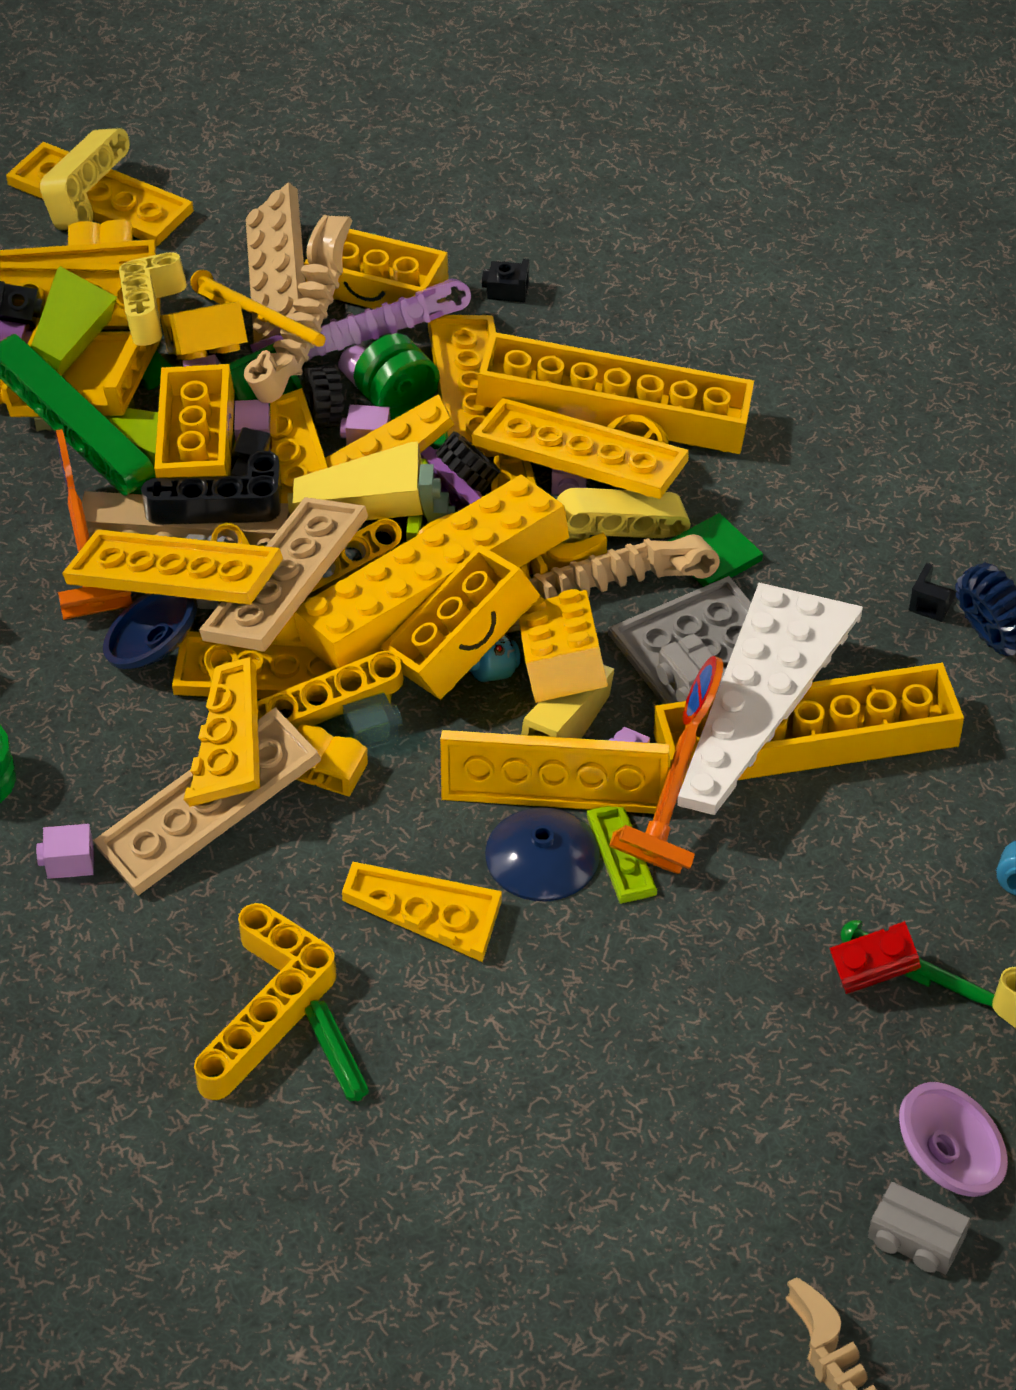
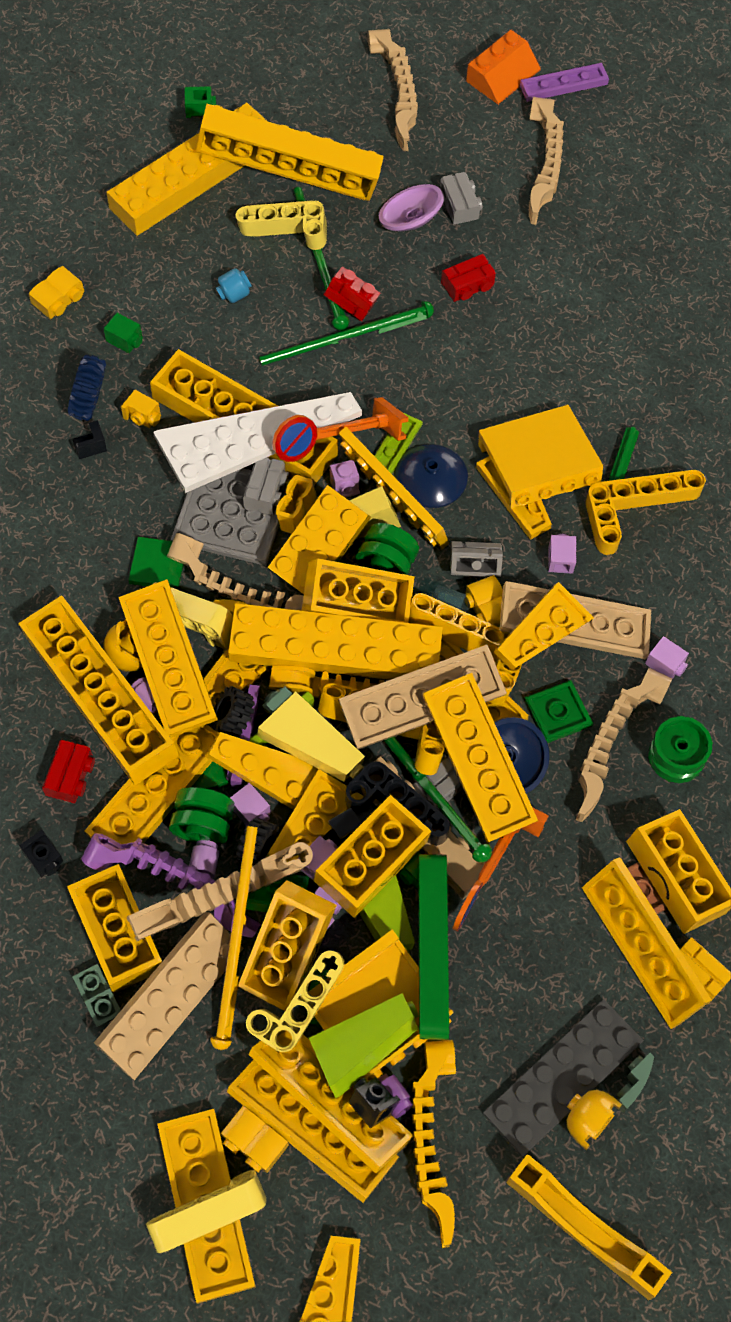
camera: 140 degrees left, 15 degrees up
(55, 694) = (653, 688): none -> tan piece
(144, 503) = (481, 852): none -> green bar
(146, 724) = (558, 711): none -> green tile
(297, 870) = (562, 553): none -> lavender brick
(388, 785) = (476, 559): none -> light grey brick
(433, 946) = (541, 455): none -> yellow panel
(483, 698) = (387, 549): none -> green wheel
(561, 328) = (68, 771): none -> red brick
(639, 684) = (296, 503): none -> yellow brick
(773, 1118) = (468, 278): none -> red brick
(776, 1033) = (382, 325): none -> green bar
(926, 652) = (141, 409): none -> yellow brick

